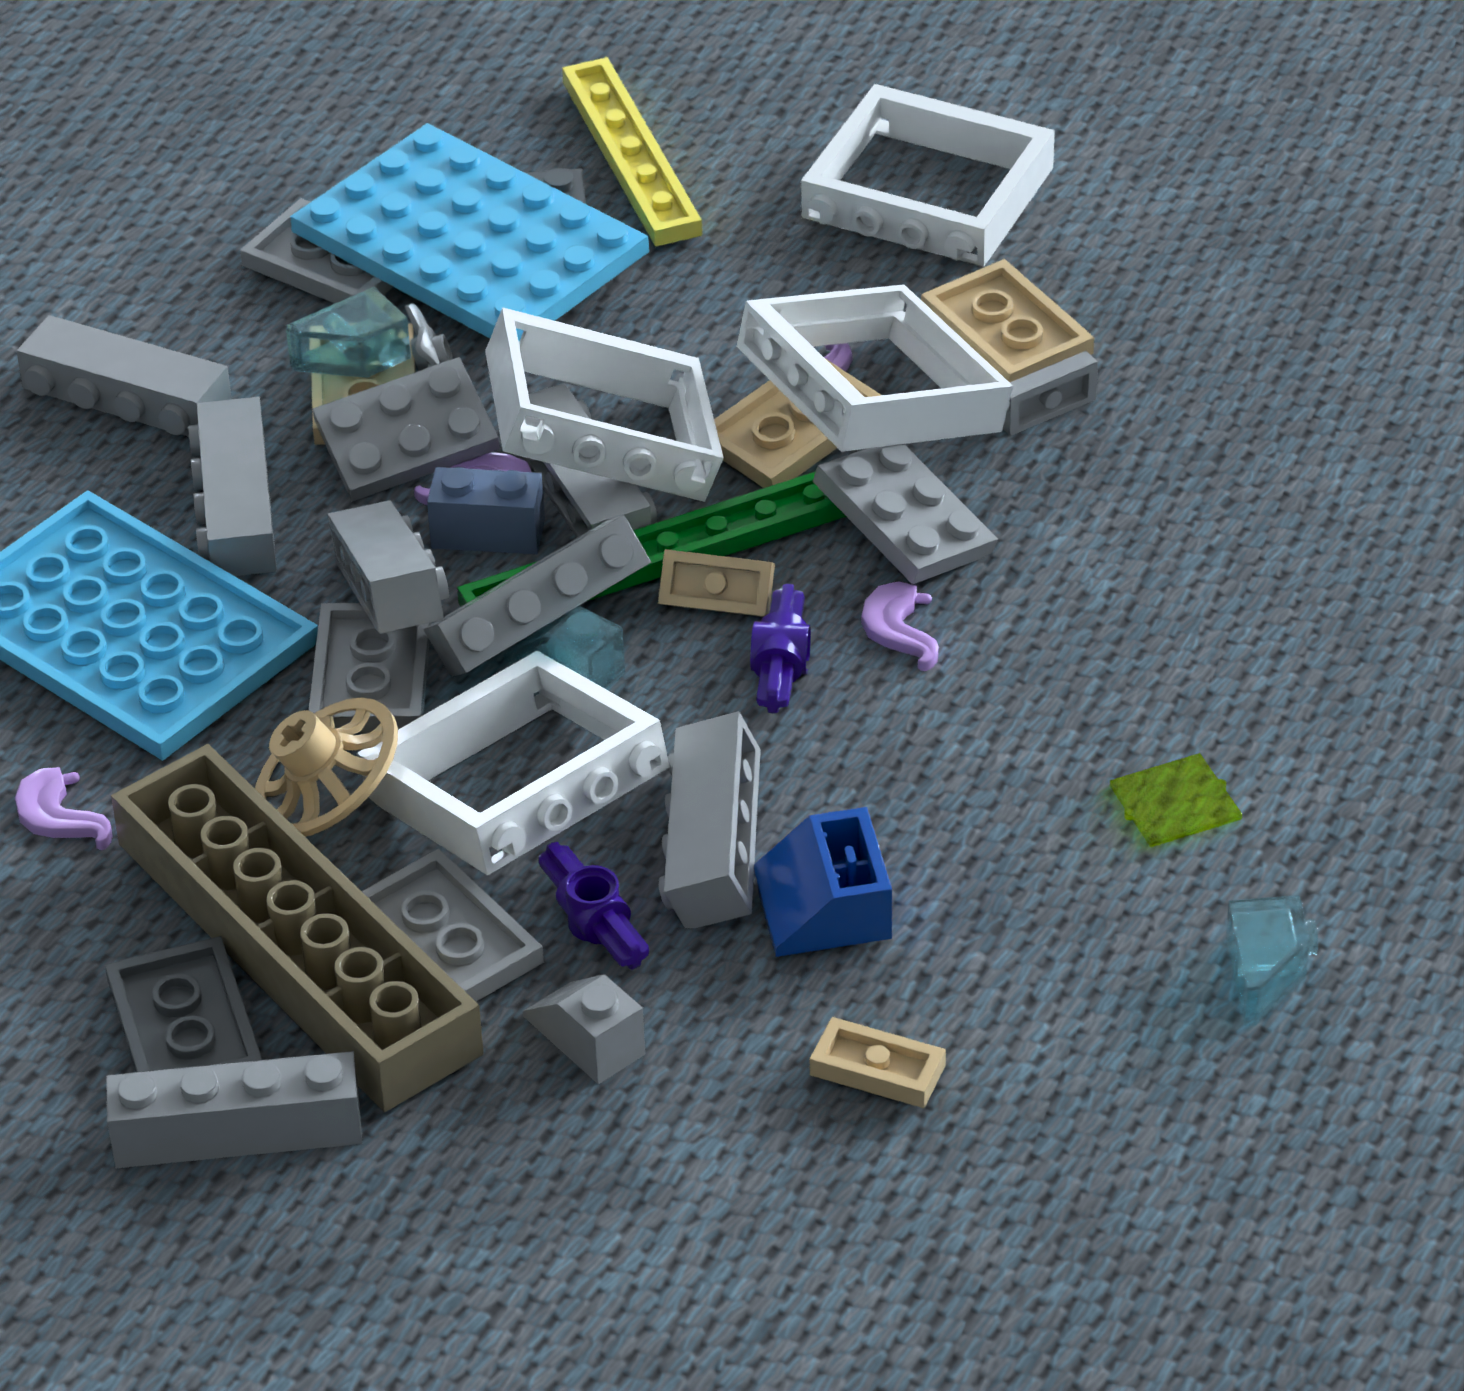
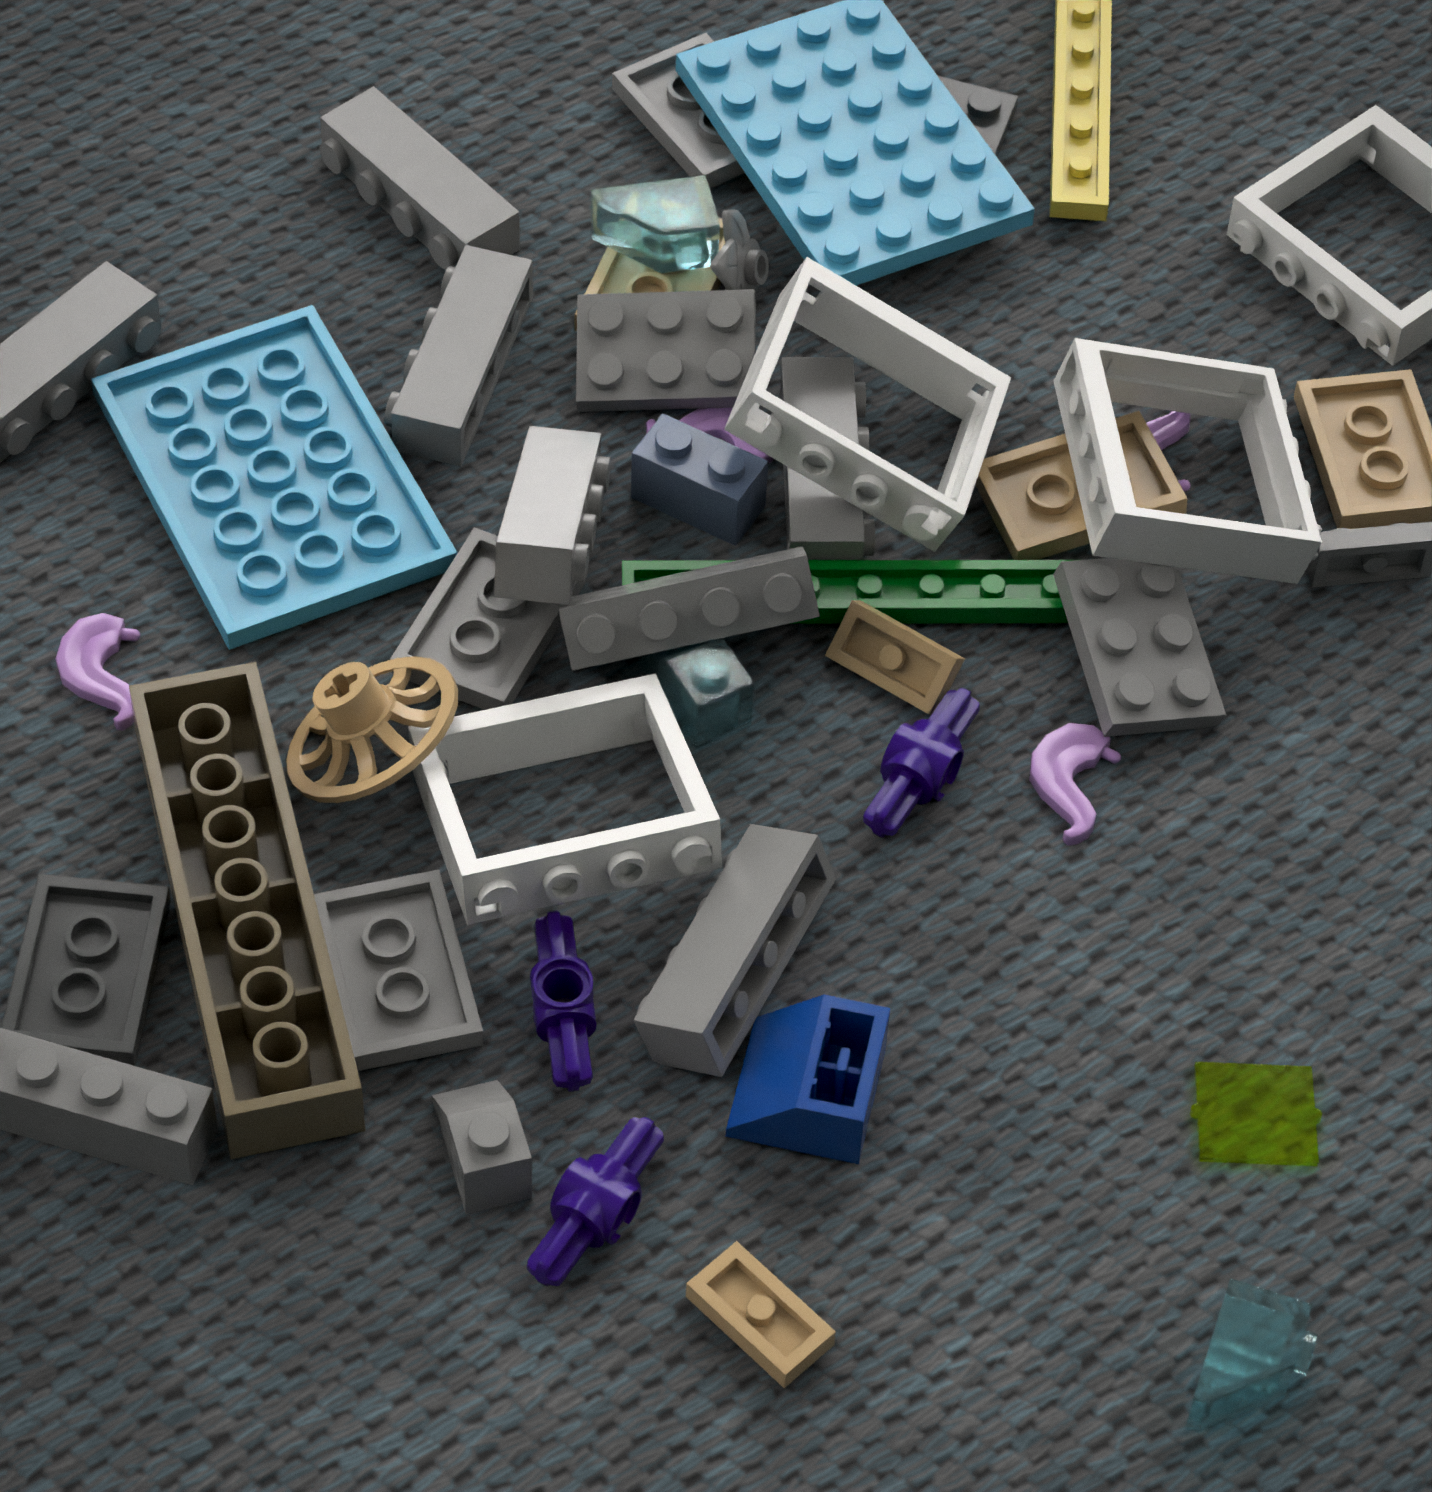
camera: 20 degrees right, 10 degrees up
(701, 1032) = (595, 1201): none -> dark purple axle

